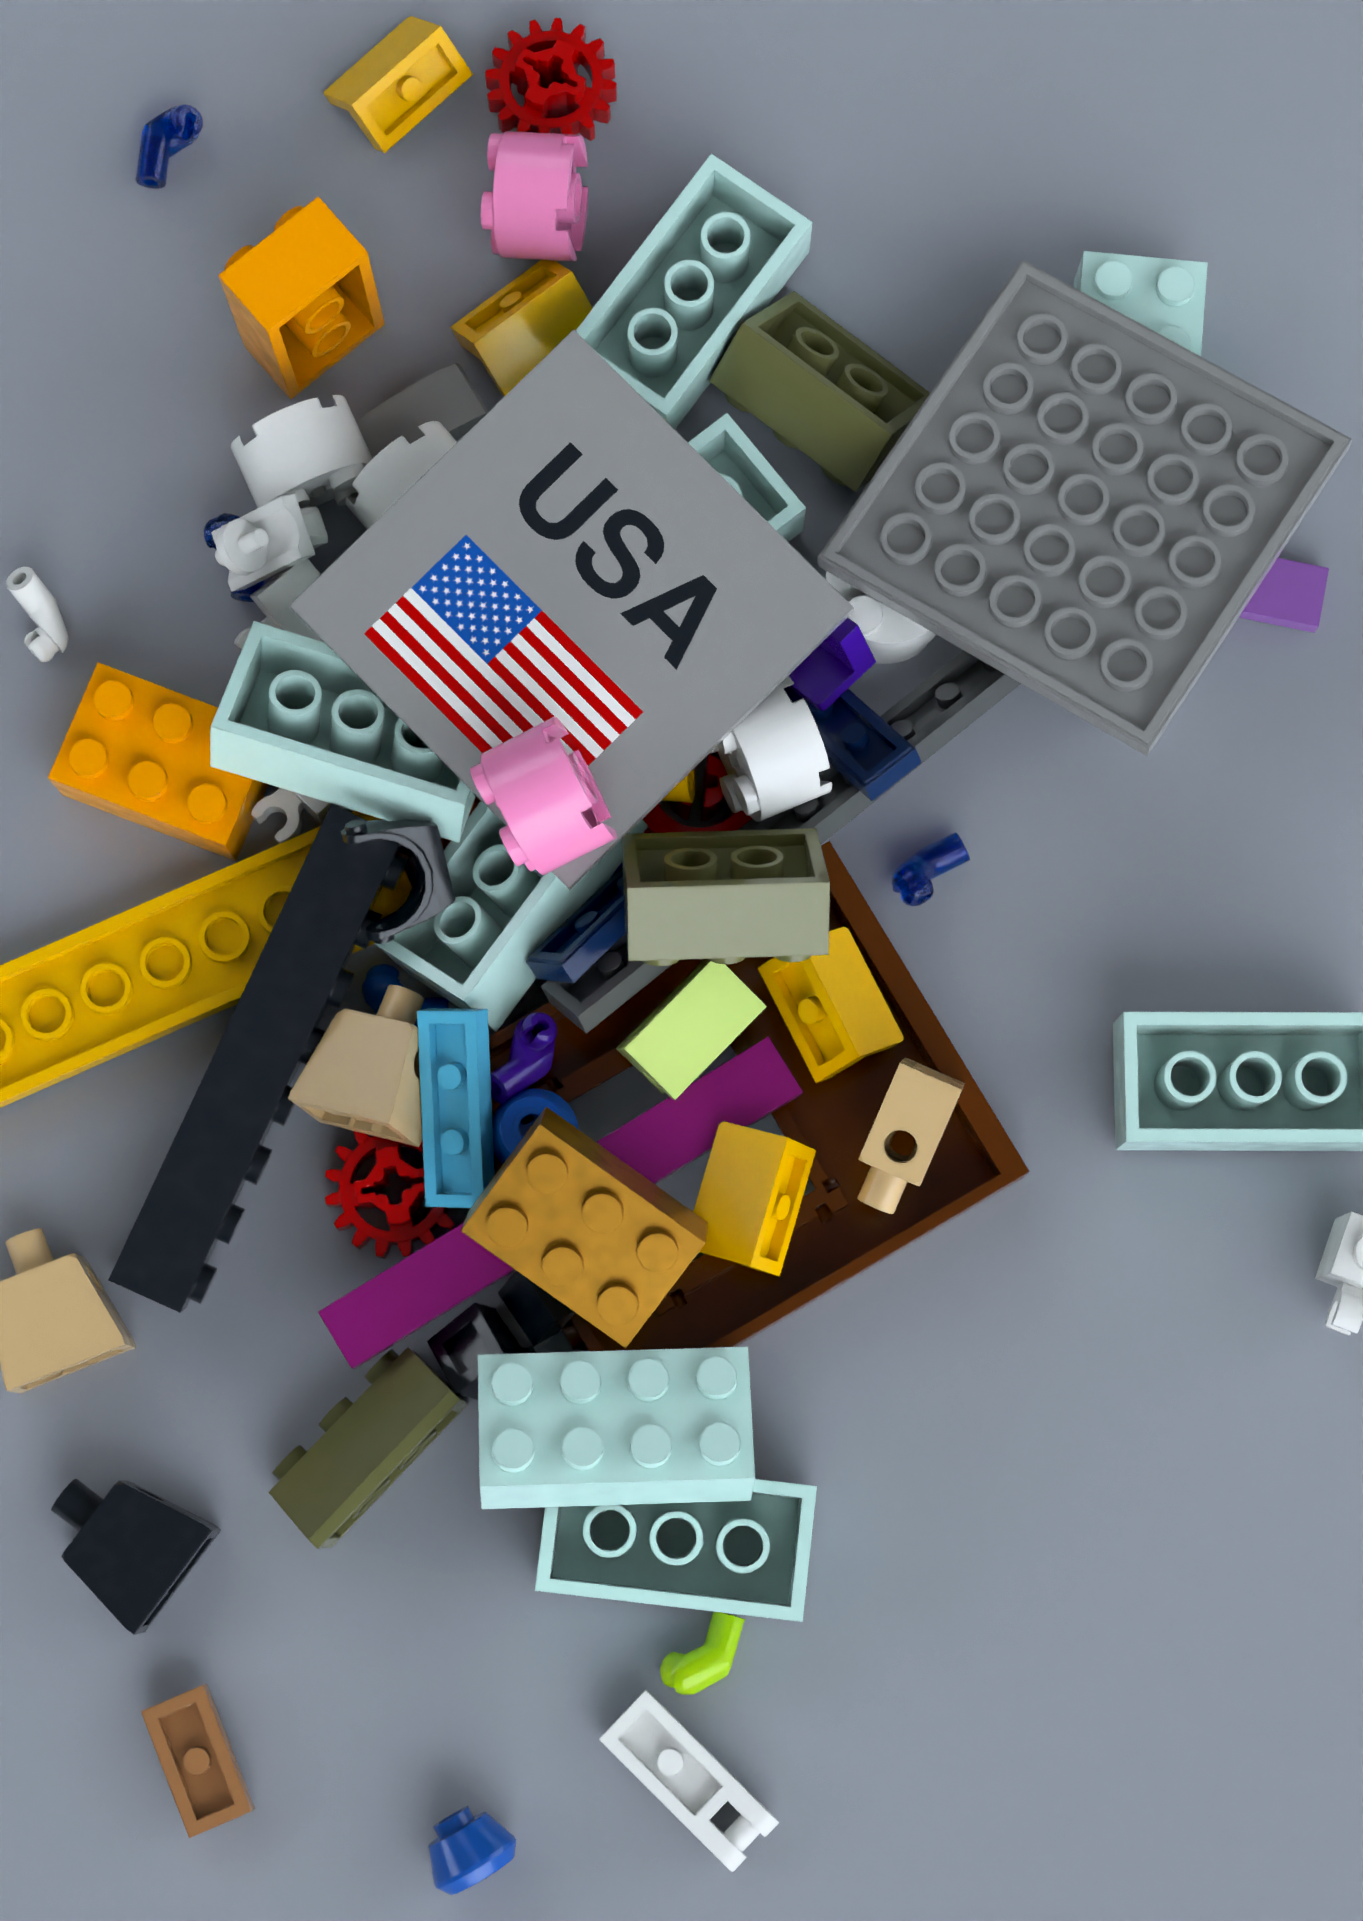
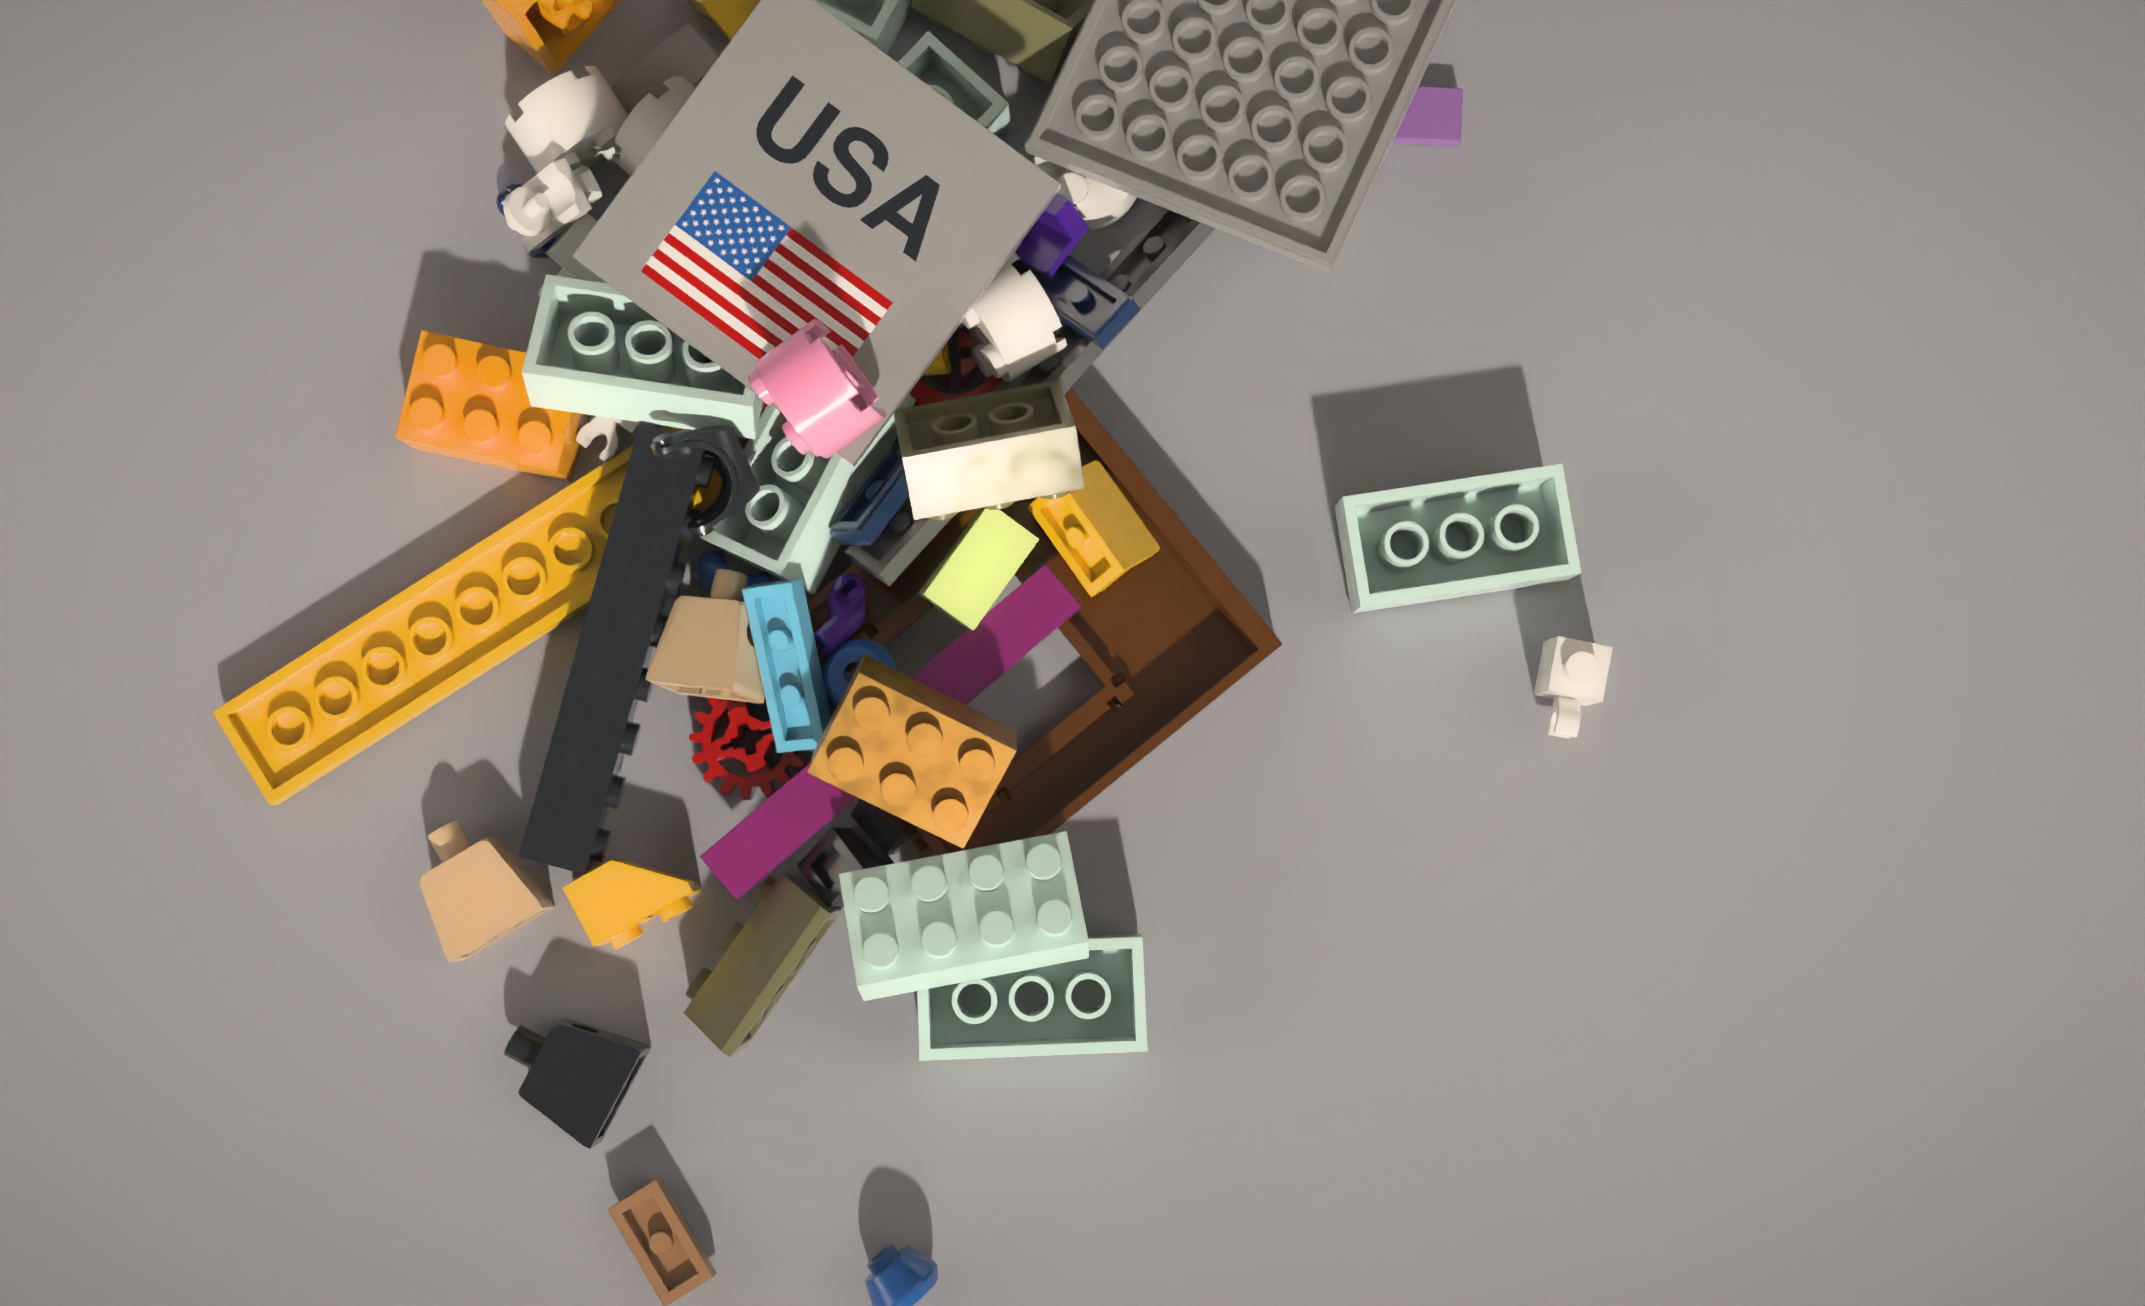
camera: 10 degrees left, 5 degrees up
(44, 611) = (369, 291): white arm -> none
(218, 1347) = (623, 896): none -> yellow slope
(686, 1778) = (1071, 1191): white plate -> none
(706, 1664) = (1074, 1095): lime arm -> none
(752, 1195) = (1051, 702): yellow panel -> none
(914, 875) = (1149, 405): clear blue arm -> none
(917, 1103) = (1178, 603): tan torso -> none

